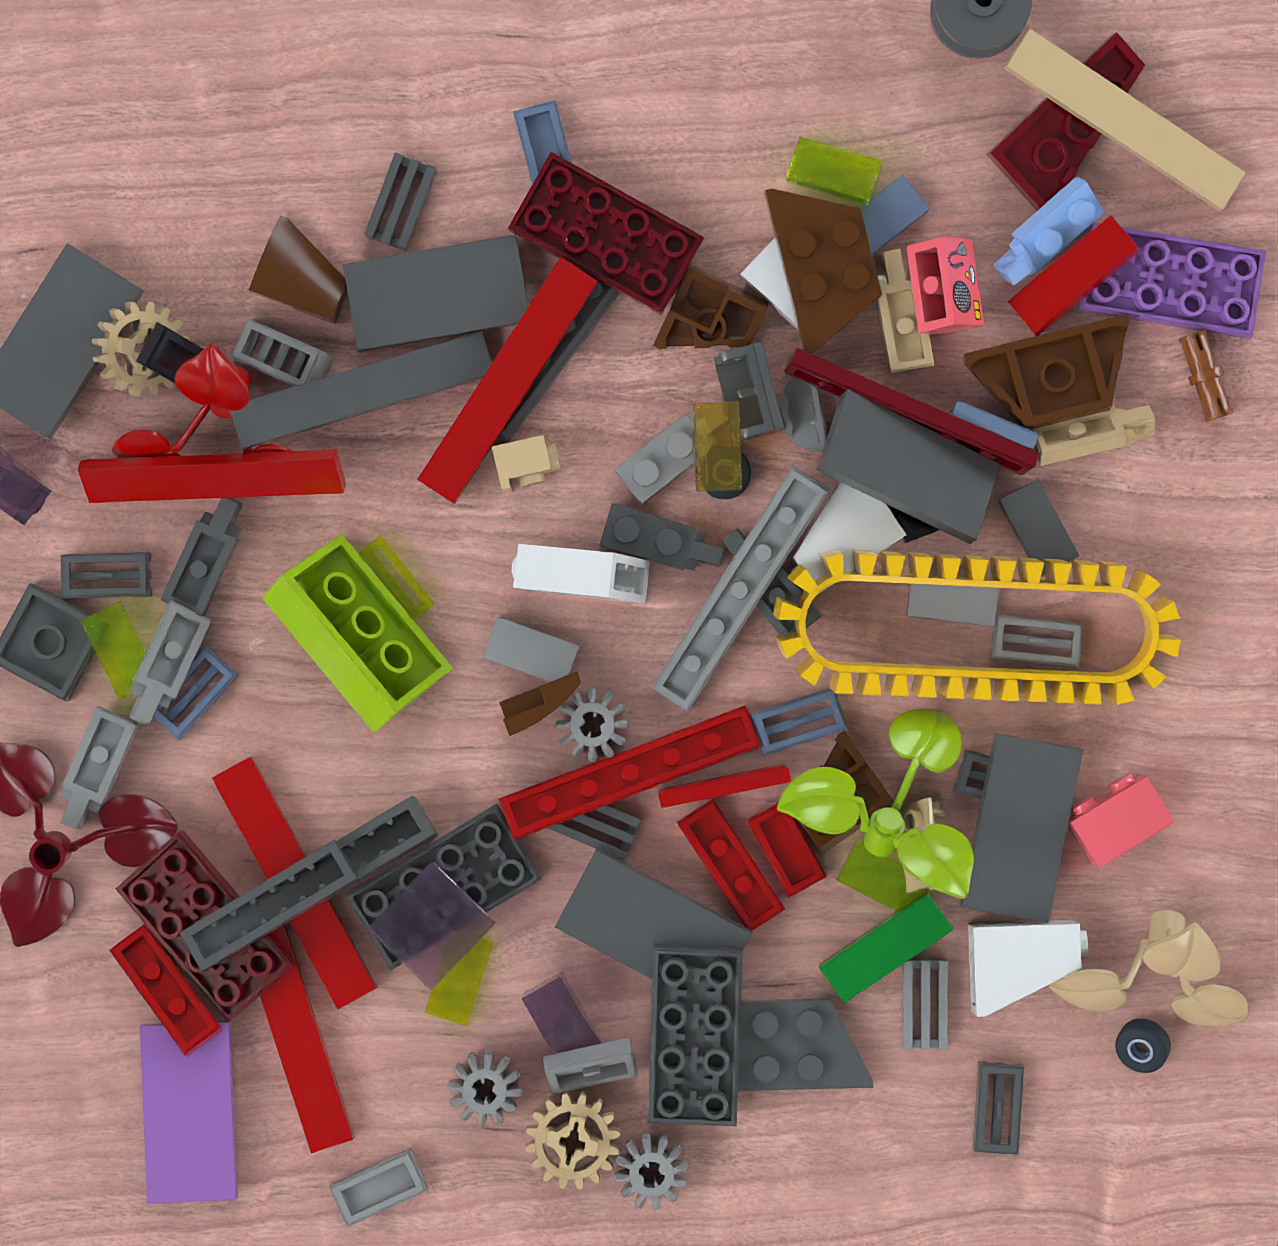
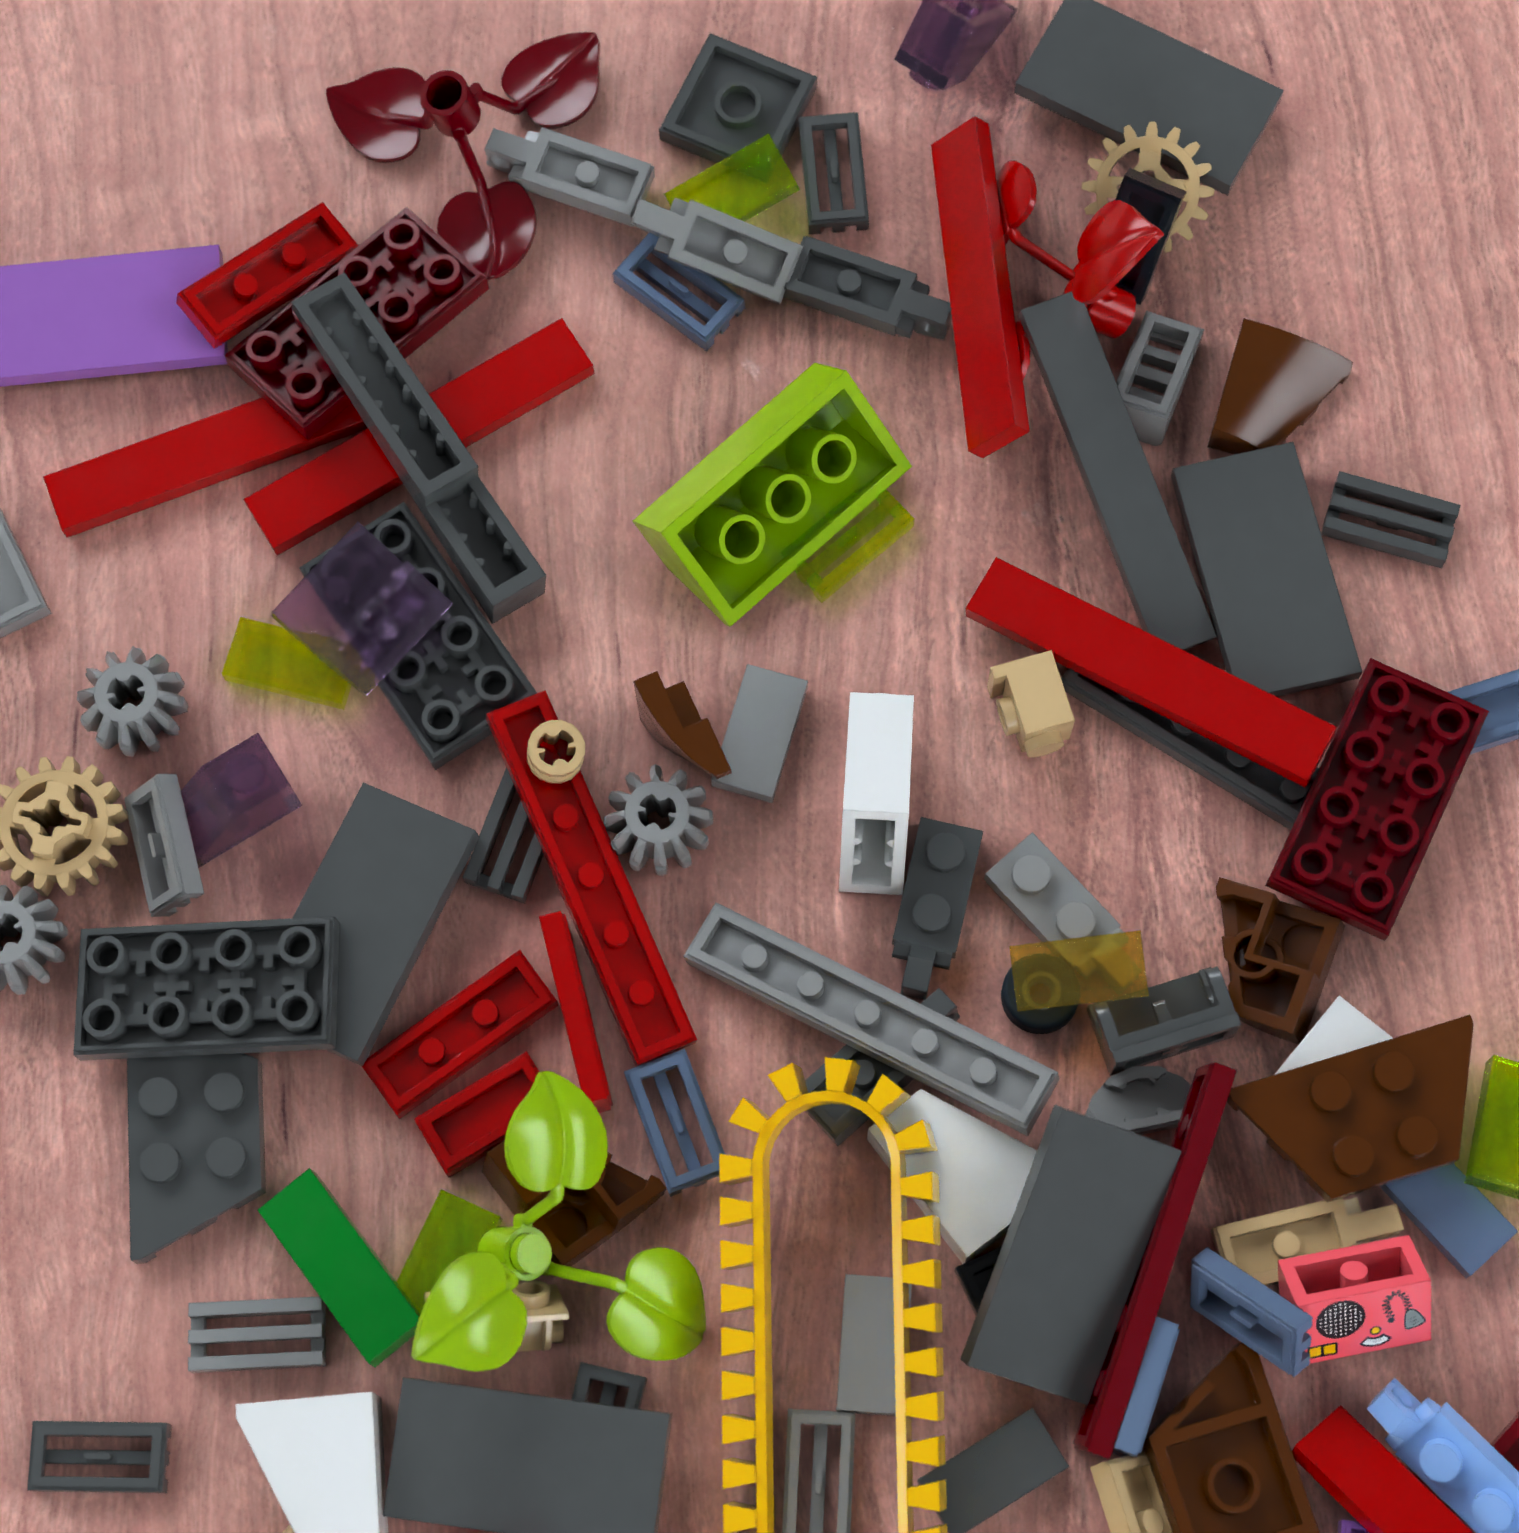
camera: 85 degrees right, 15 degrees down
(559, 790) = (550, 733): none -> tan bush
(950, 354) = (1250, 1311): none -> sand blue tile

